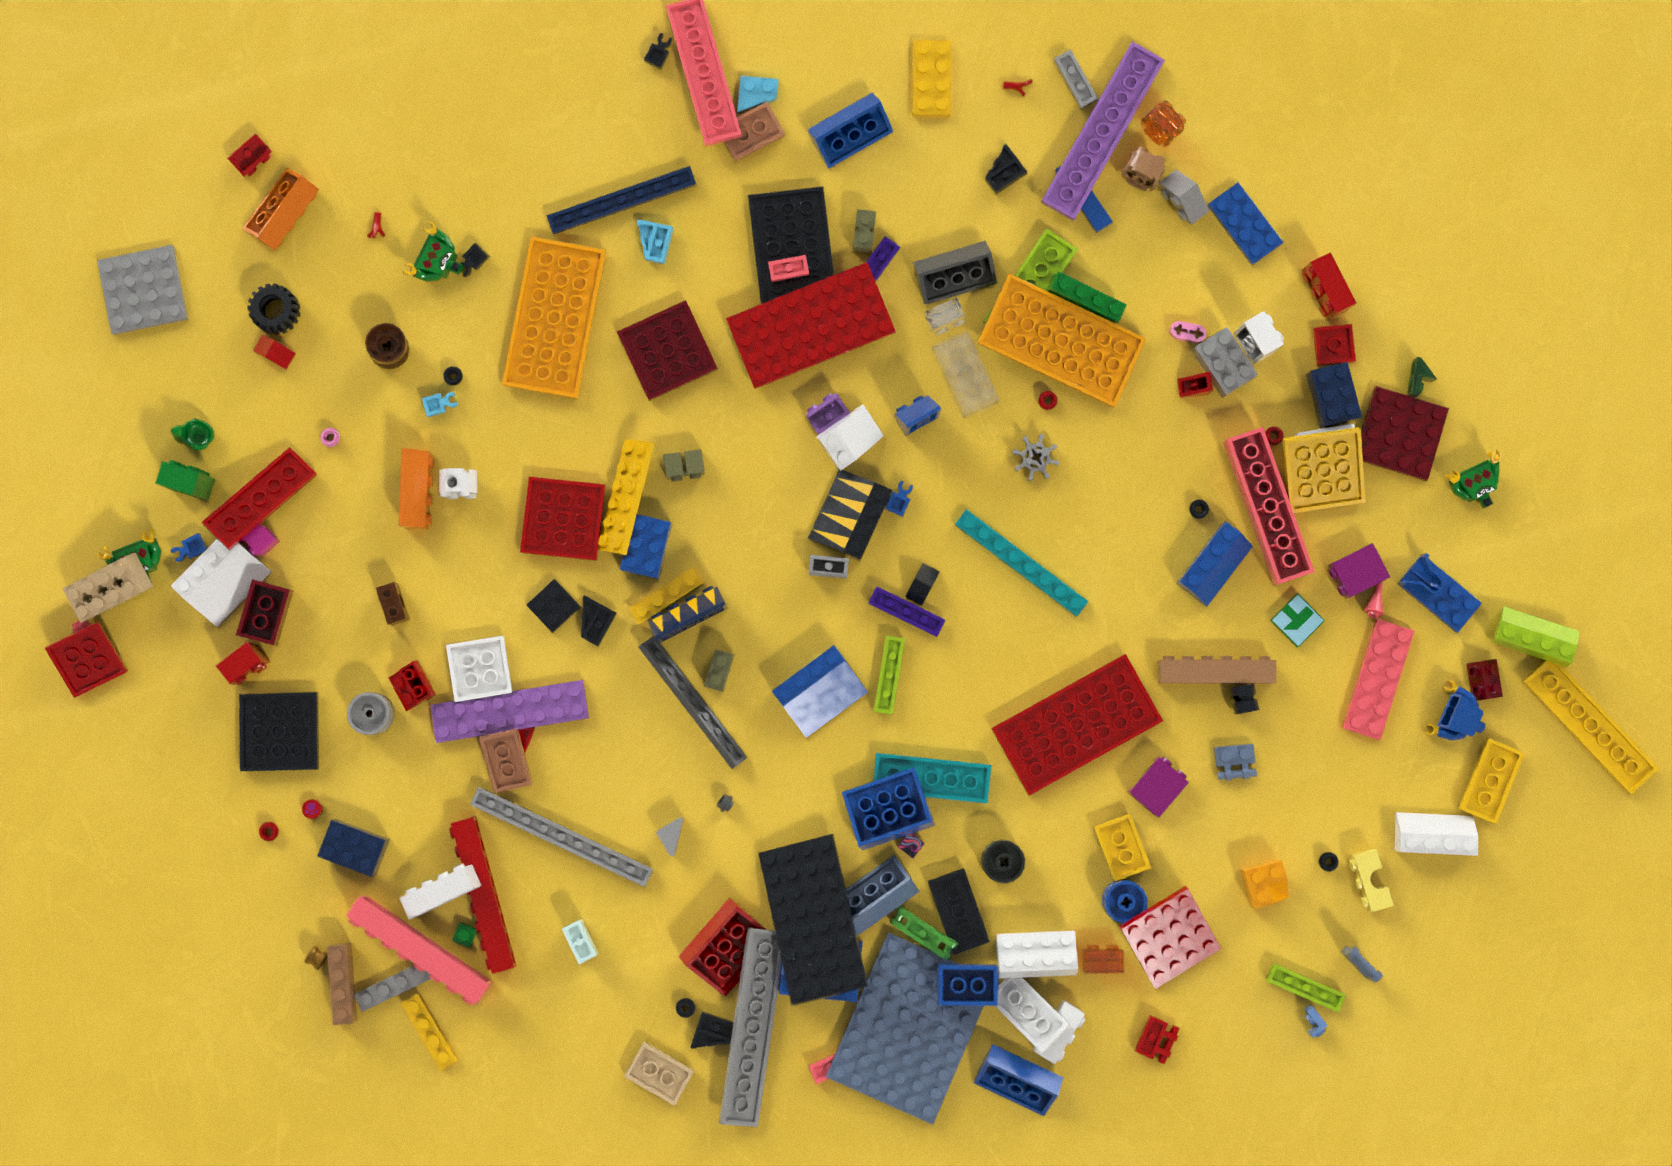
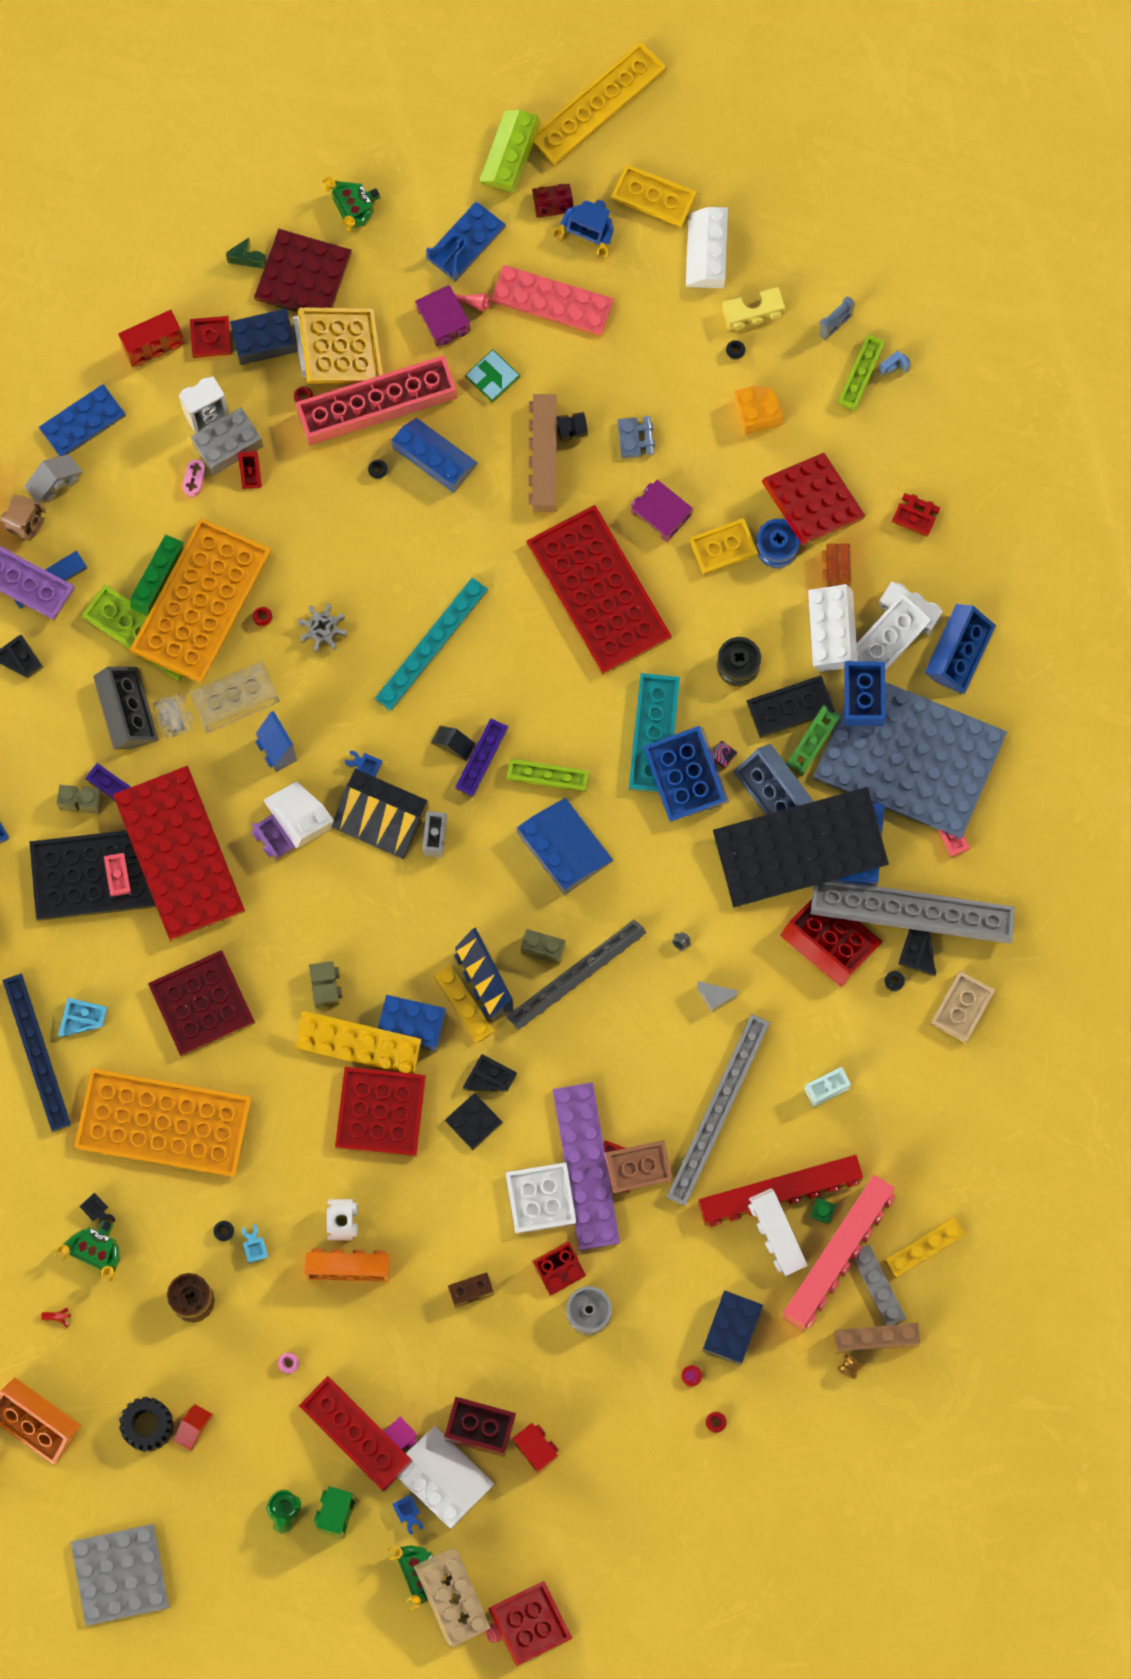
camera: 85 degrees left, 10 degrees down
(279, 731) = (608, 1412): black plate -> none

